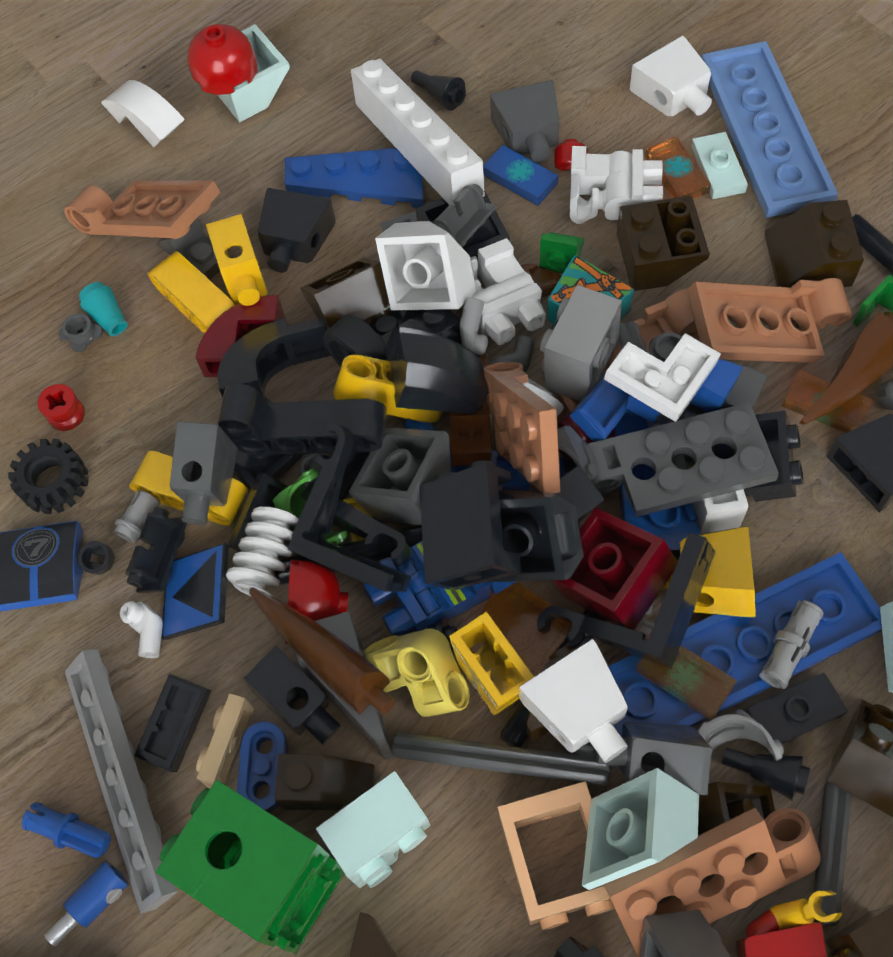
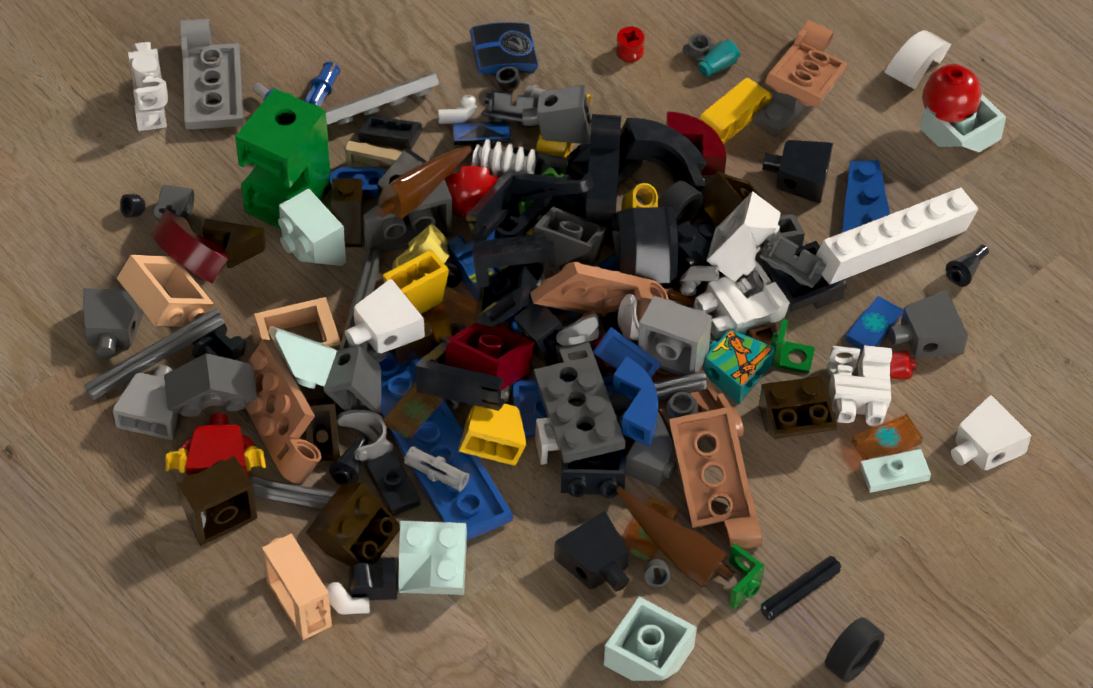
camera: 80 degrees right, 10 degrees down
(37, 461) = (573, 56): black tyre -> none
(242, 273) = (753, 128): yellow torso -> none
(661, 384) = (625, 370): white plate -> none
(768, 130) = (939, 506): medium blue plate -> none
(815, 245) = (800, 531): dark brown slope -> none

